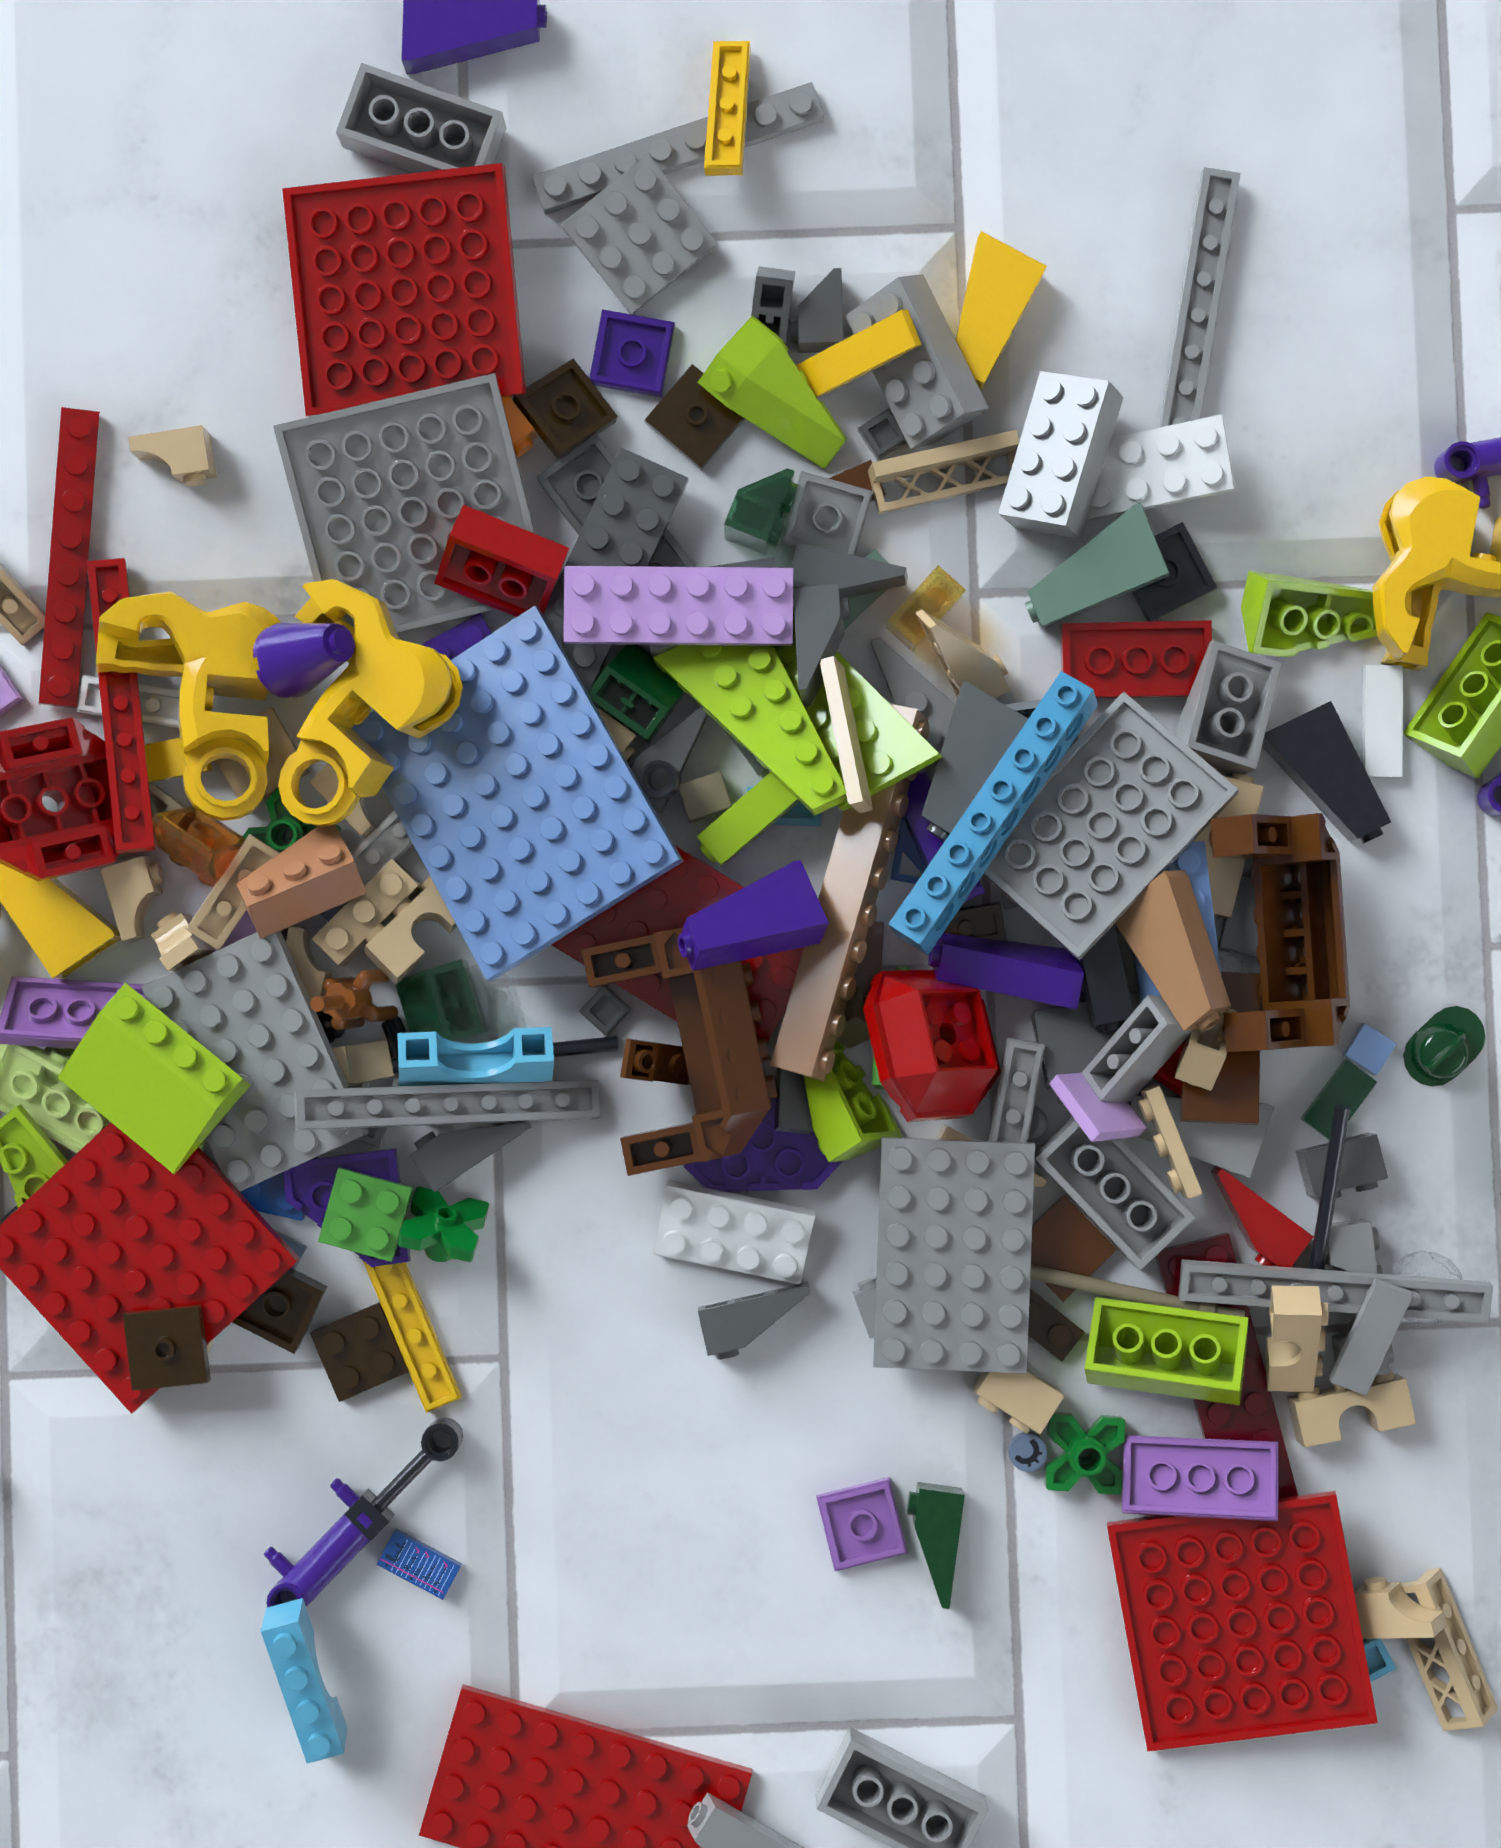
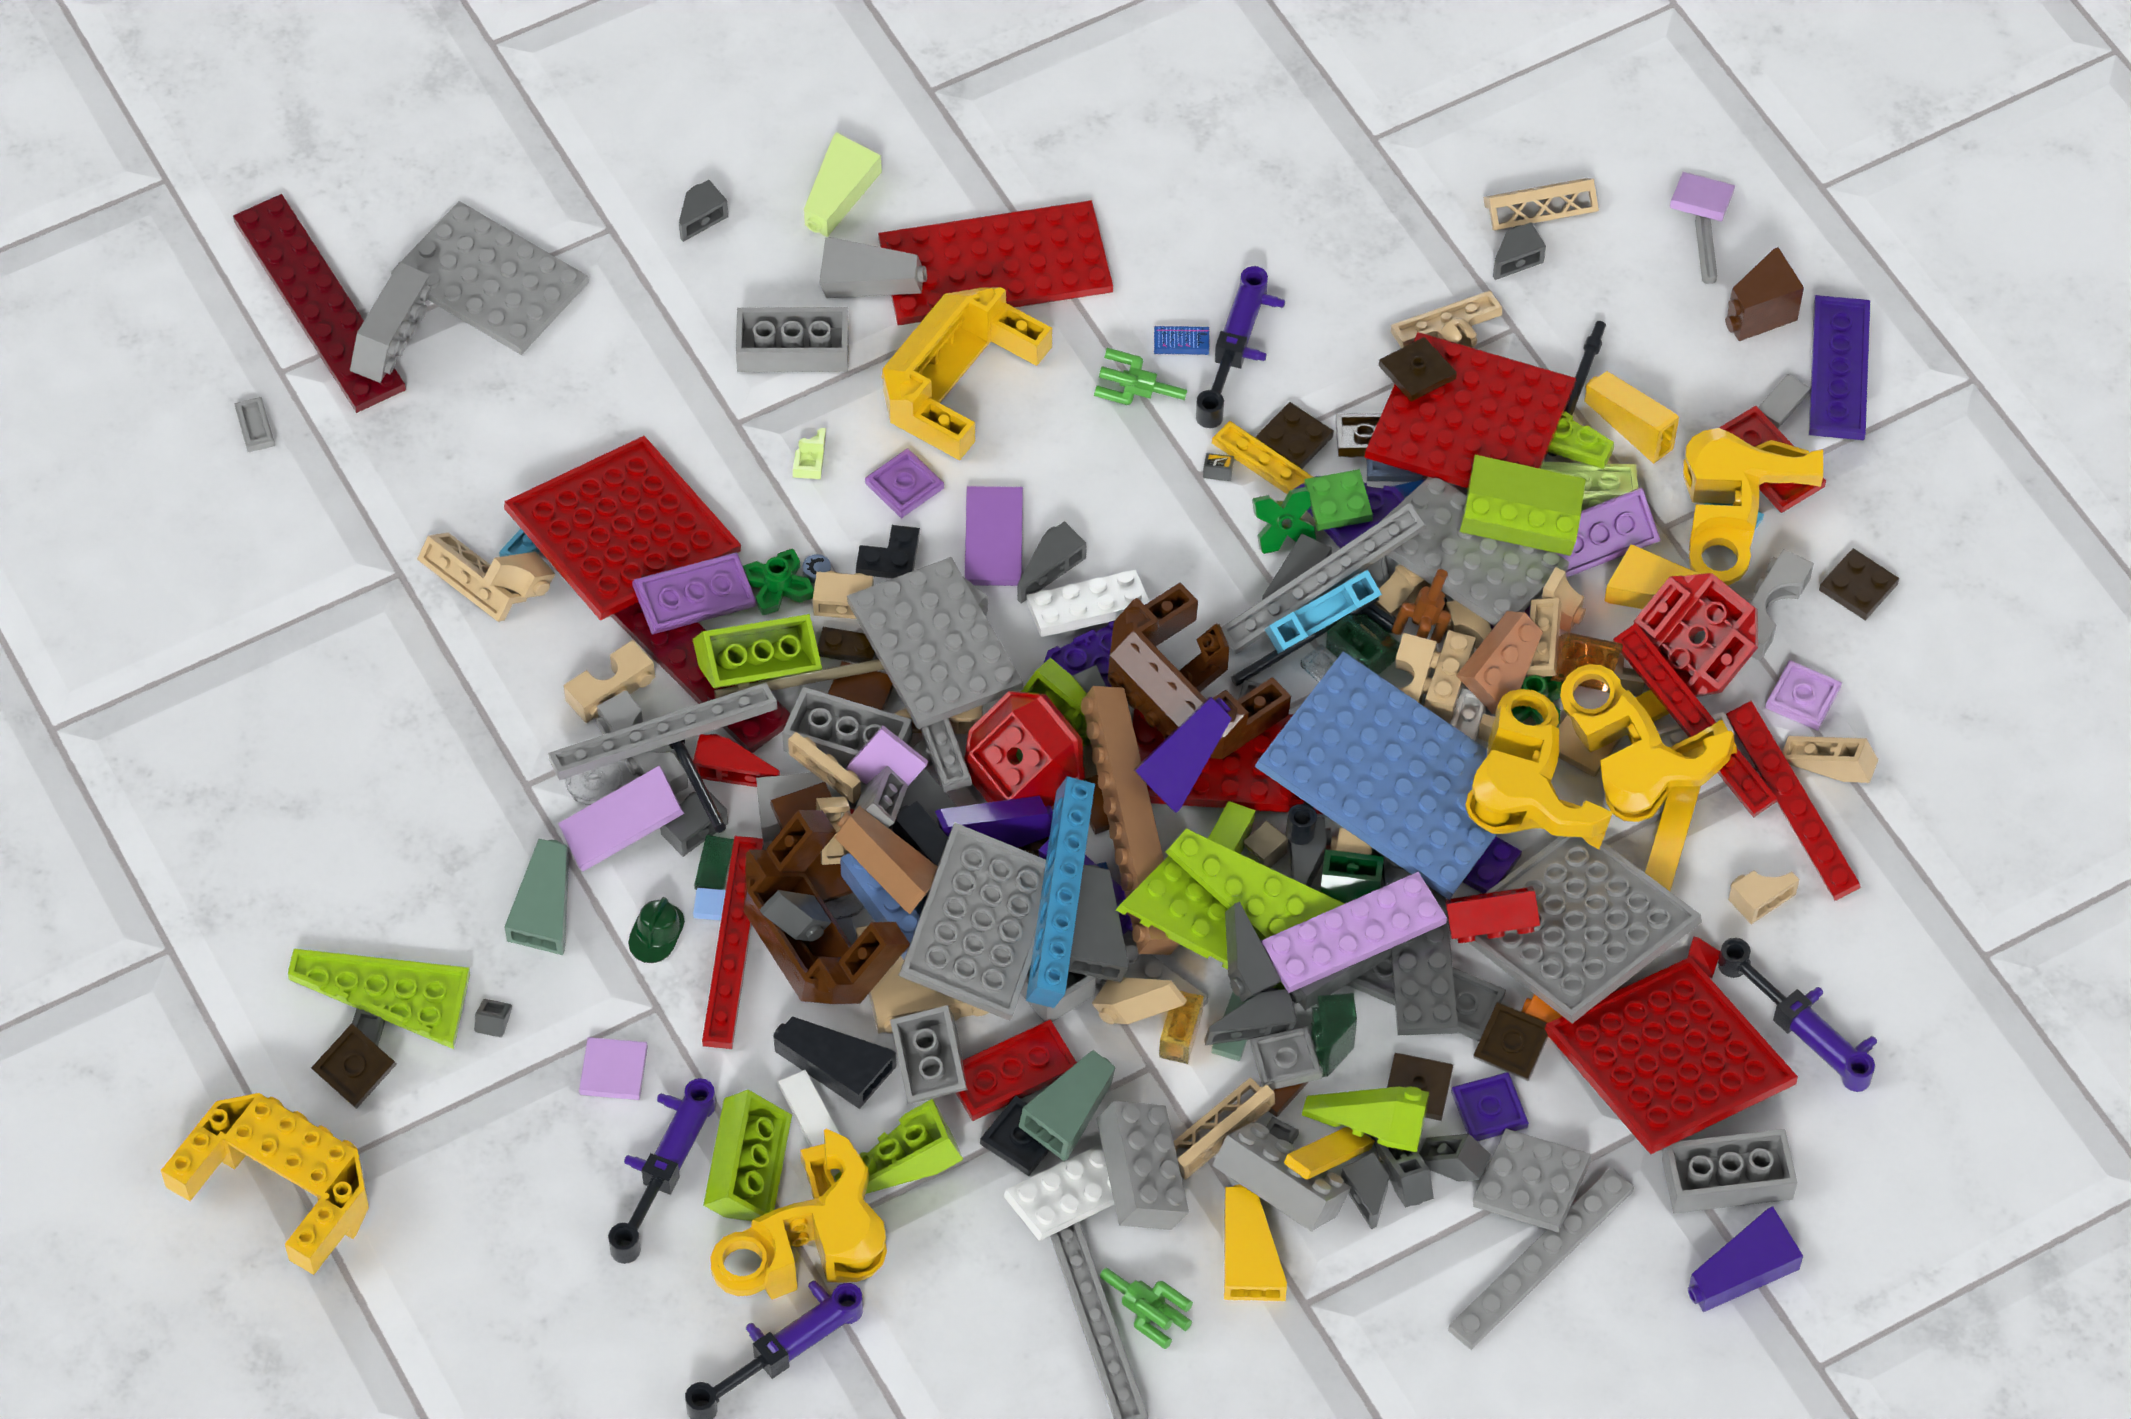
camera: 150 degrees right, 30 degrees down
(81, 1417) = (1451, 321): none -> tan plate
(130, 890) = (1612, 612): tan arch -> none
(229, 281) = (1797, 1016): none -> piece
(252, 563) = (1672, 834): none -> yellow tile
(288, 408) = (1704, 955): none -> red slope
(292, 1652) = (1236, 251): medium azure arch -> none
(300, 655) = (1590, 778): dark purple cone -> none
(473, 1355) = (1218, 467): none -> dark grey slope
(512, 1527) = (1135, 380): none -> bright green plant
(708, 303) = (1455, 1156): none -> dark grey slope
(727, 108) = (1521, 1289): yellow tile -> none
(733, 1683) = (943, 351): none -> yellow wedge
(793, 1391) = (993, 535): none -> medium lavender tile
(846, 735) = (1190, 891): tile -> none
(925, 1416) = (890, 561): none -> black plate
(937, 1521) = (853, 495): dark green slope -> none
(958, 1622) = (810, 456): none -> yellowish green slope
(1135, 297) = (1151, 1306): none -> bright green plant
(1296, 1338) = (676, 692): tan arch -> none
(1304, 945) = (797, 915): none -> dark grey slope
(1370, 1336) = (625, 712): light grey tile -> none
(1373, 978) = (730, 952): none -> red plate
(1428, 1204) = (621, 818): none -> lavender tile

